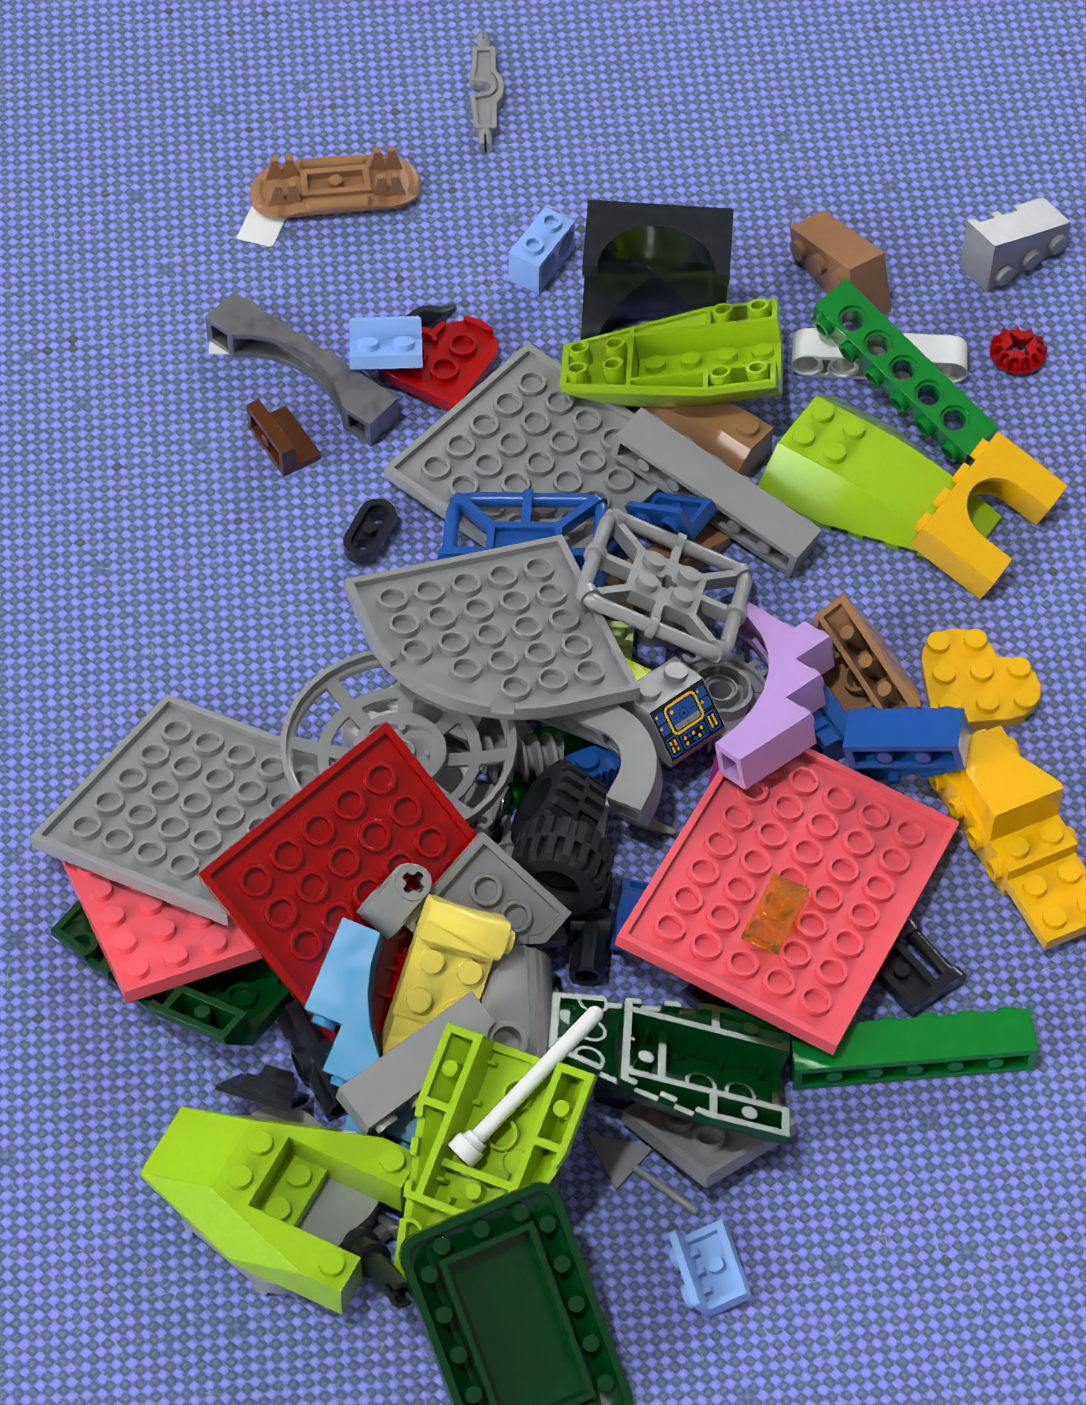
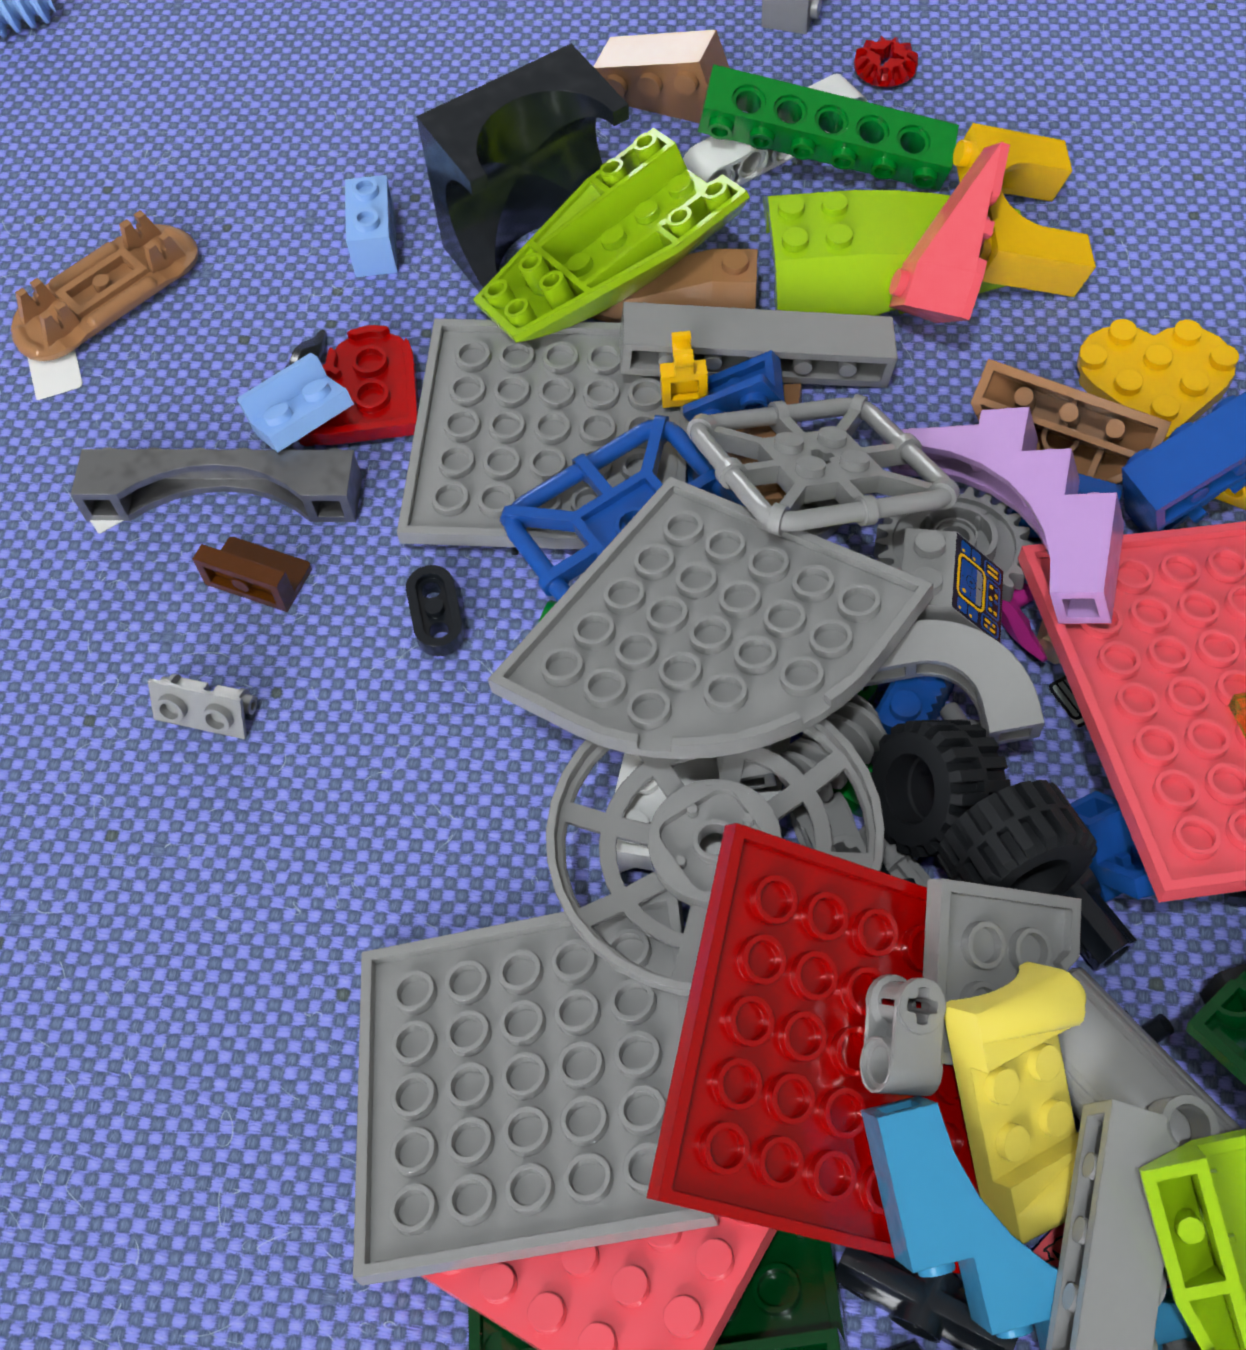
camera: 30 degrees left, 5 degrees up
(182, 497) = (194, 706): none -> light grey hinge
(485, 104) = (189, 116): light grey piece -> none
(639, 481) = (683, 378): none -> yellow plate
(876, 518) = (944, 267): none -> coral wedge

